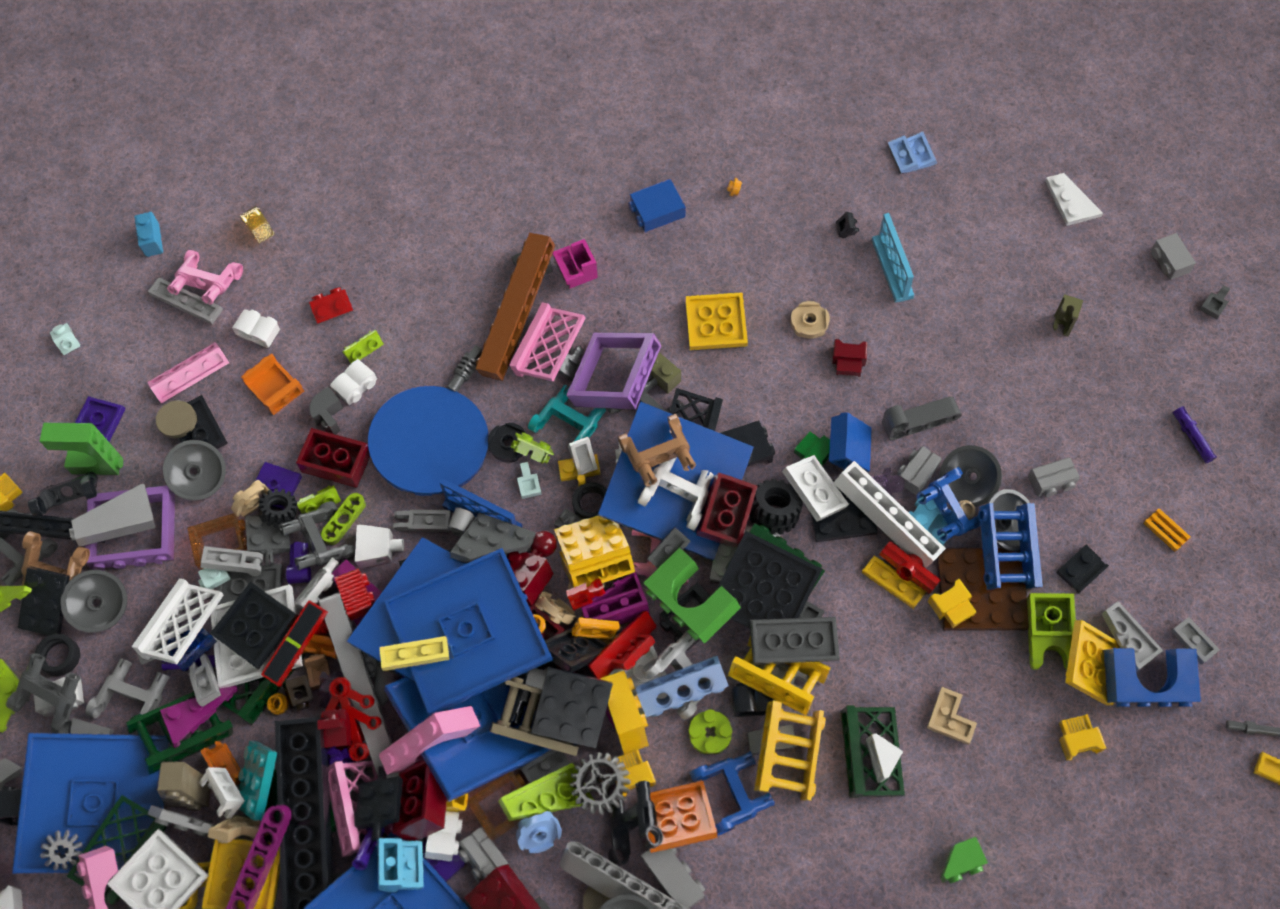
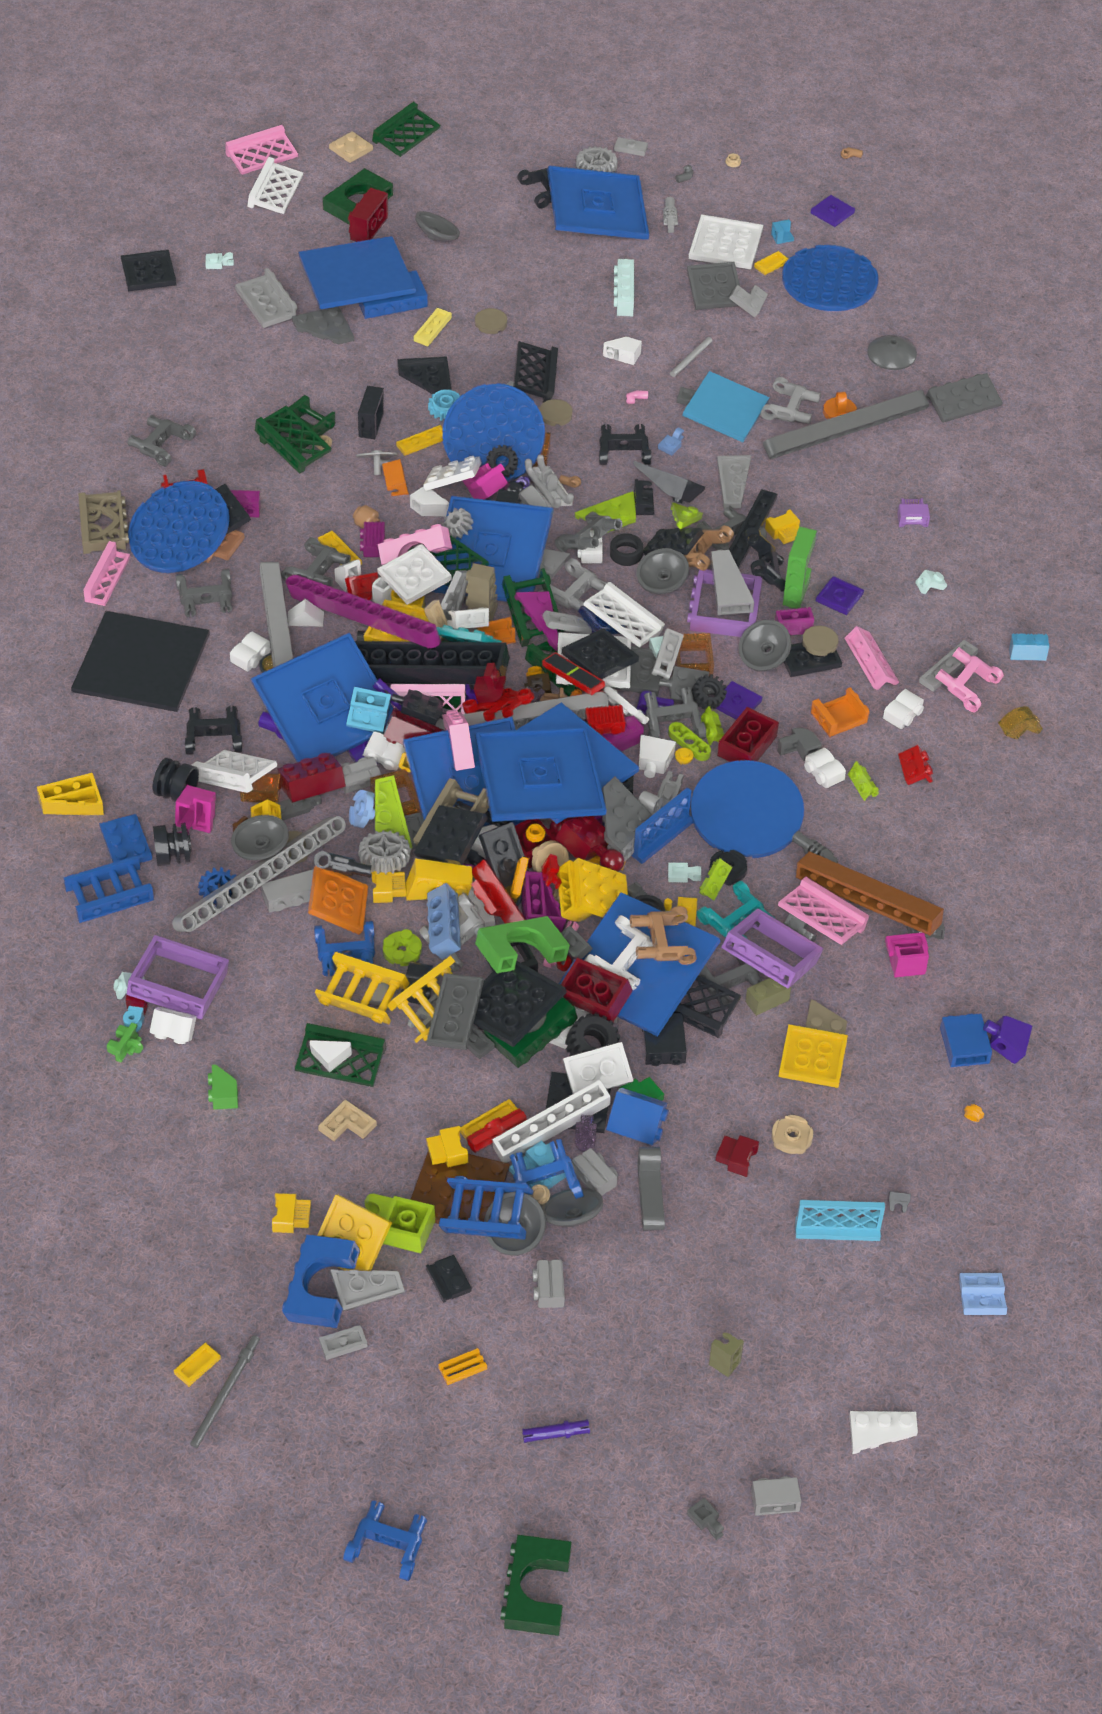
camera: 100 degrees right, 15 degrees down
(151, 449) = (795, 620): none -> magenta brick
(248, 501) = (722, 671): tan plate -> none
(365, 517) = (684, 755): none -> yellow plate
(414, 653) = (528, 730): light yellow plate -> none
(583, 456) = (694, 904): white slope -> none
(646, 170) = (1009, 1037): none -> dark purple torso
(672, 321) = (824, 1019): none -> dark tan wing

